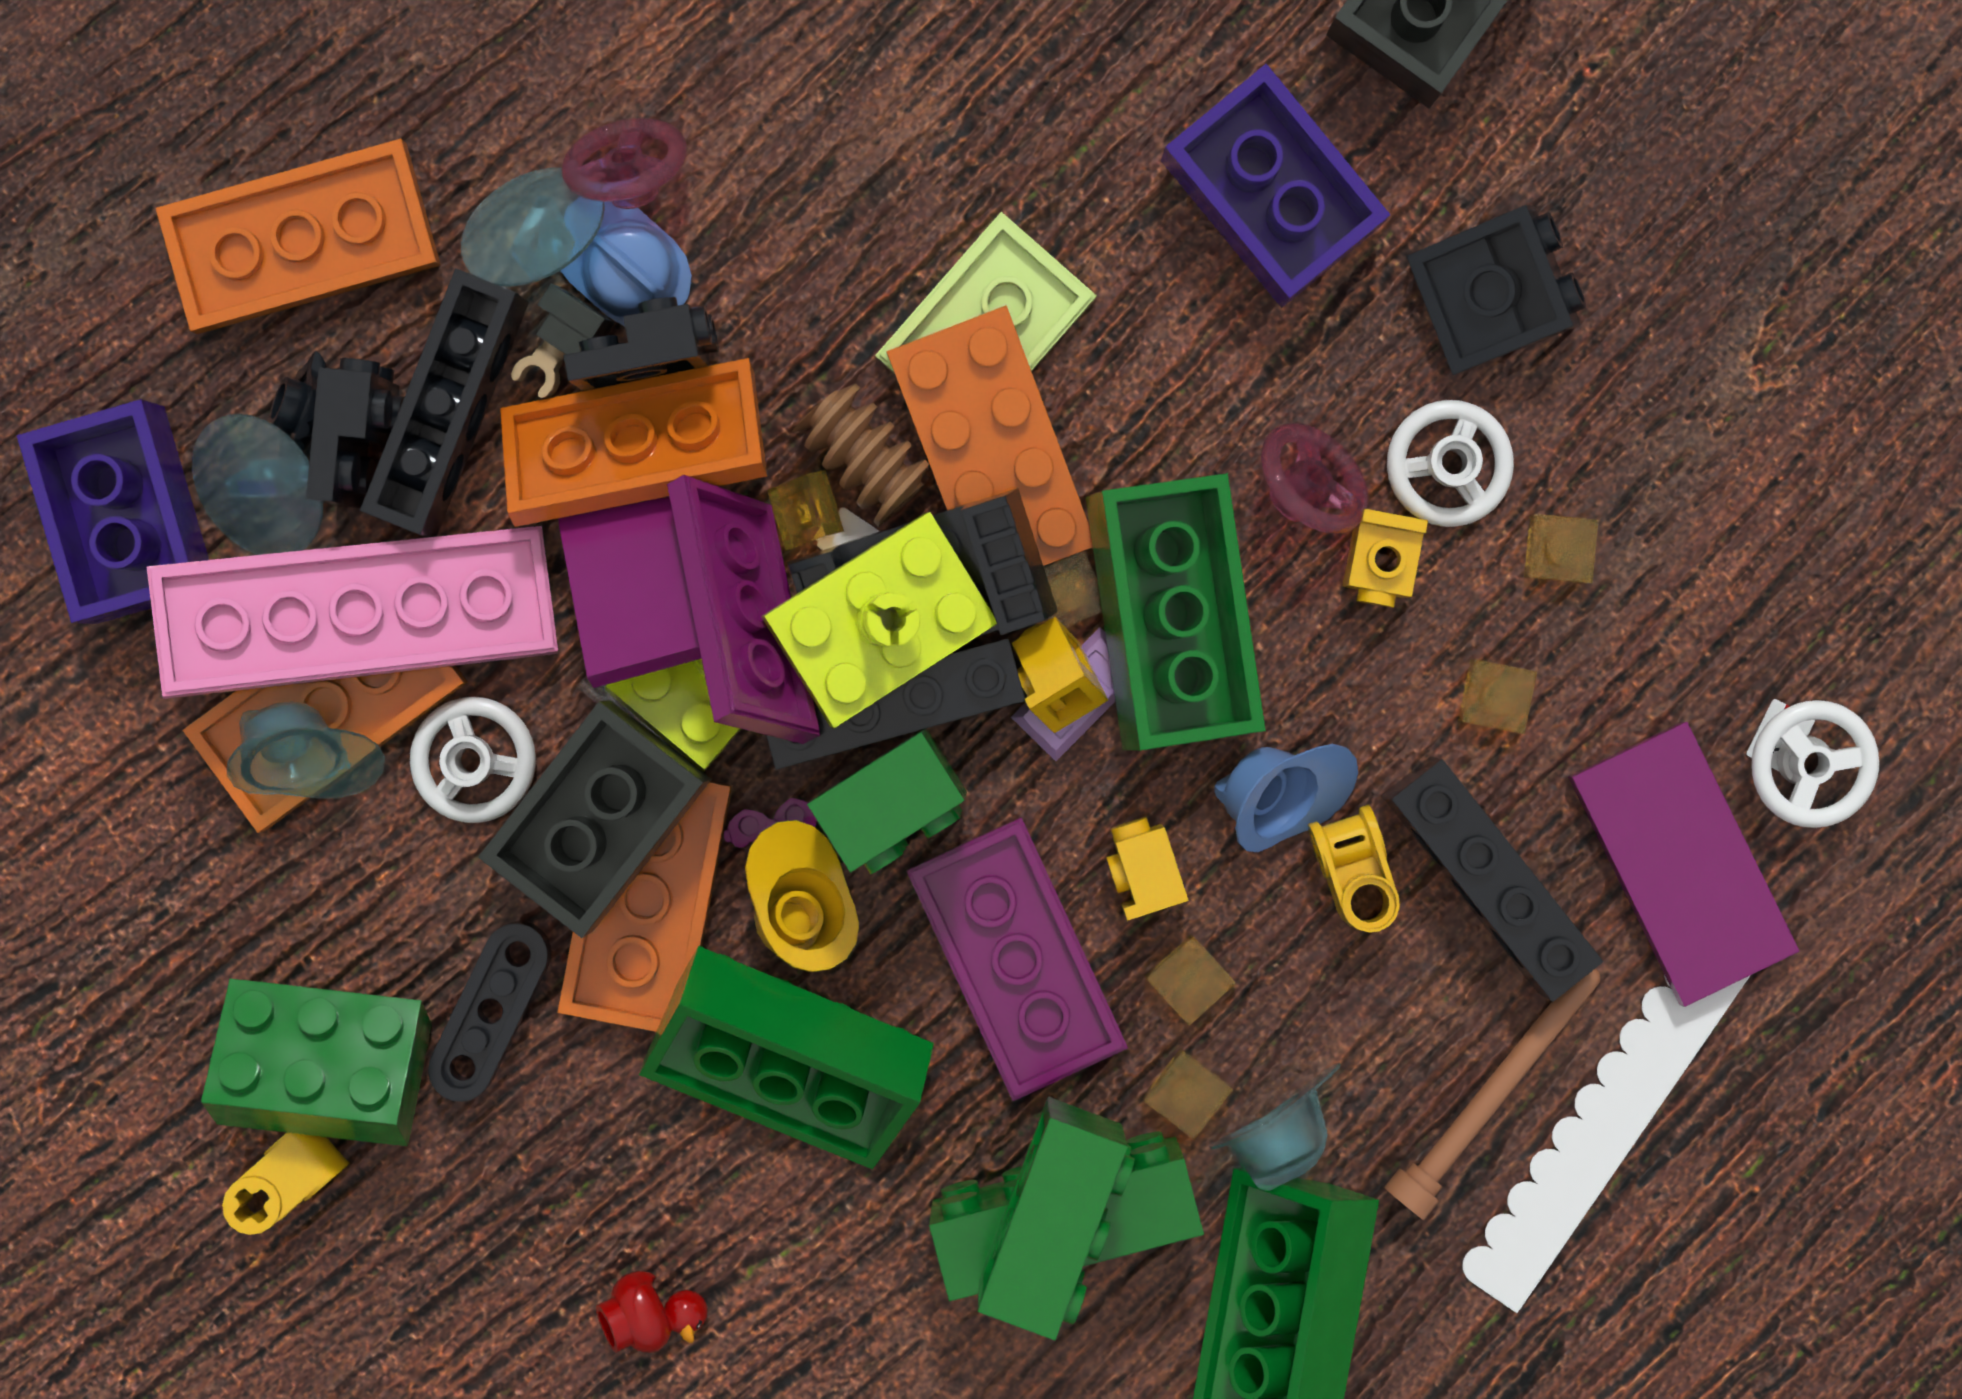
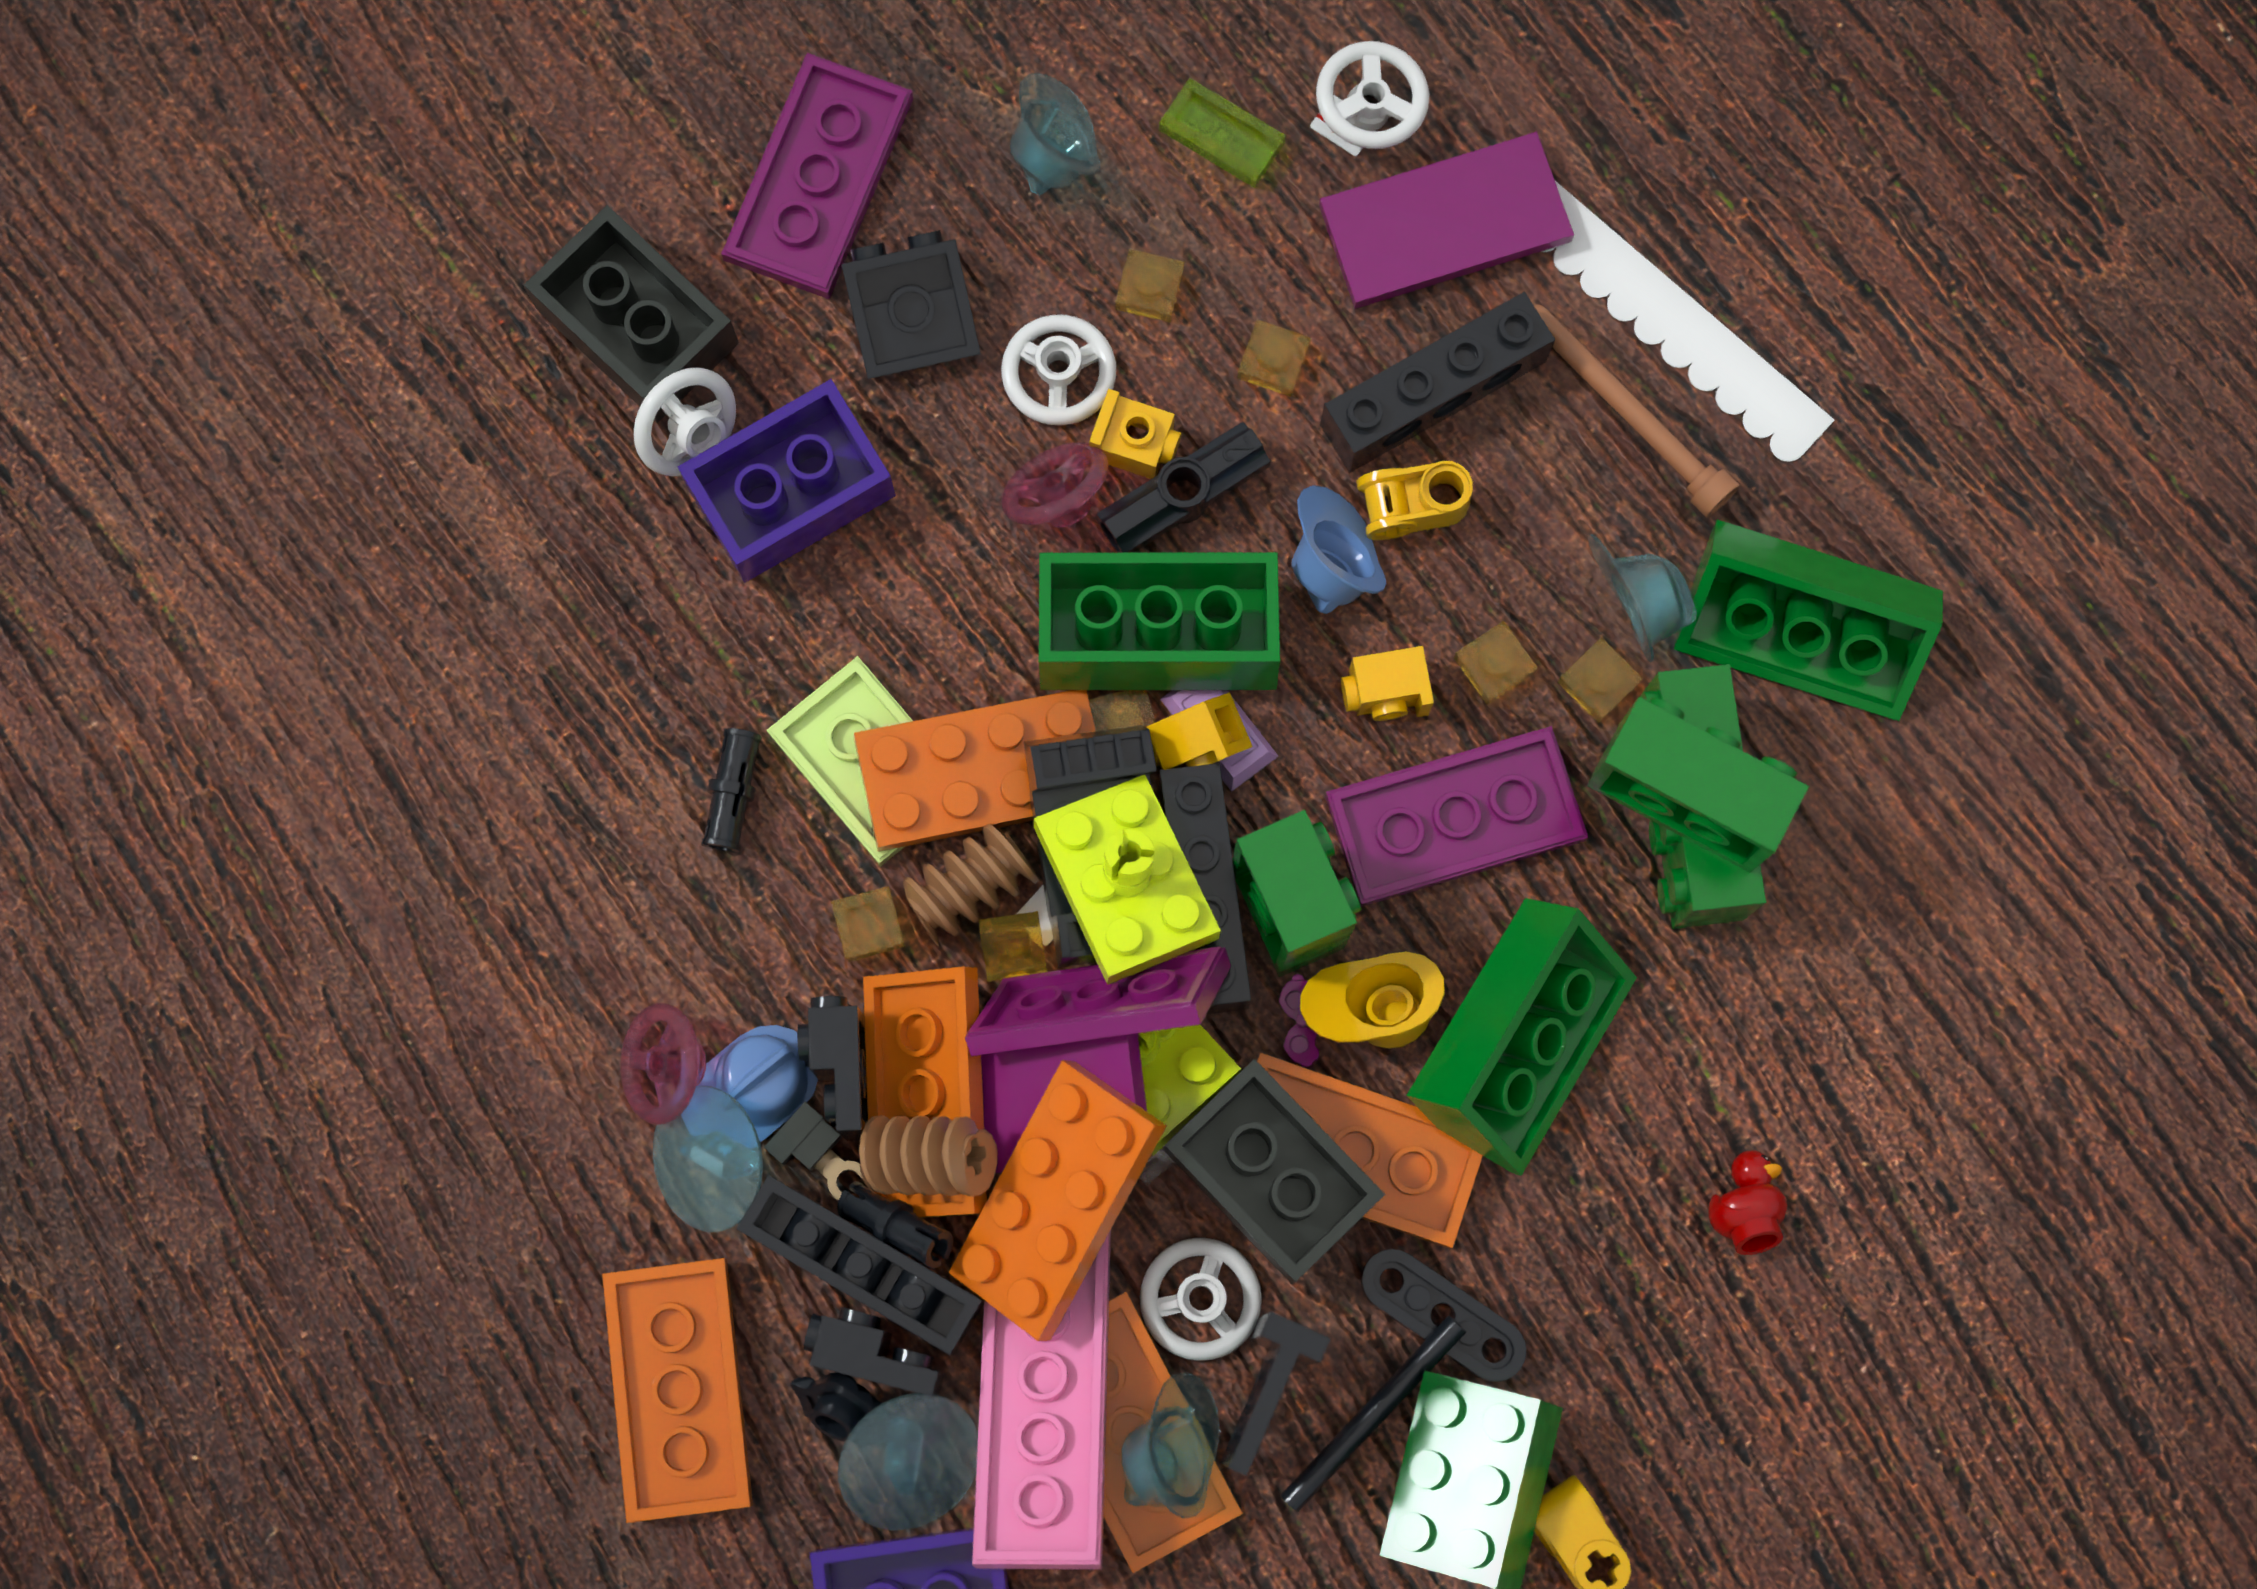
camera: 85 degrees left, 10 degrees down
(379, 953) = (1373, 1413): none -> black bar
(401, 858) = (1287, 1344): none -> black fence
(488, 433) = (895, 1224): none -> black pin
(530, 597) = (1057, 1200): none -> orange plate
(554, 454) = (927, 1156): none -> medium nougat piece
(807, 354) = (868, 924): none -> clear yellow plate
(929, 185) = (731, 790): none -> black pin
(1317, 74) = (690, 428): none -> white piece
(1359, 649) = (1212, 469): none -> black piece
(1636, 163) = (817, 176): none -> magenta tile
(1718, 416) = (1053, 135): none -> clear light blue piece
(1751, 602) = (1222, 132): none -> clear neon green tile

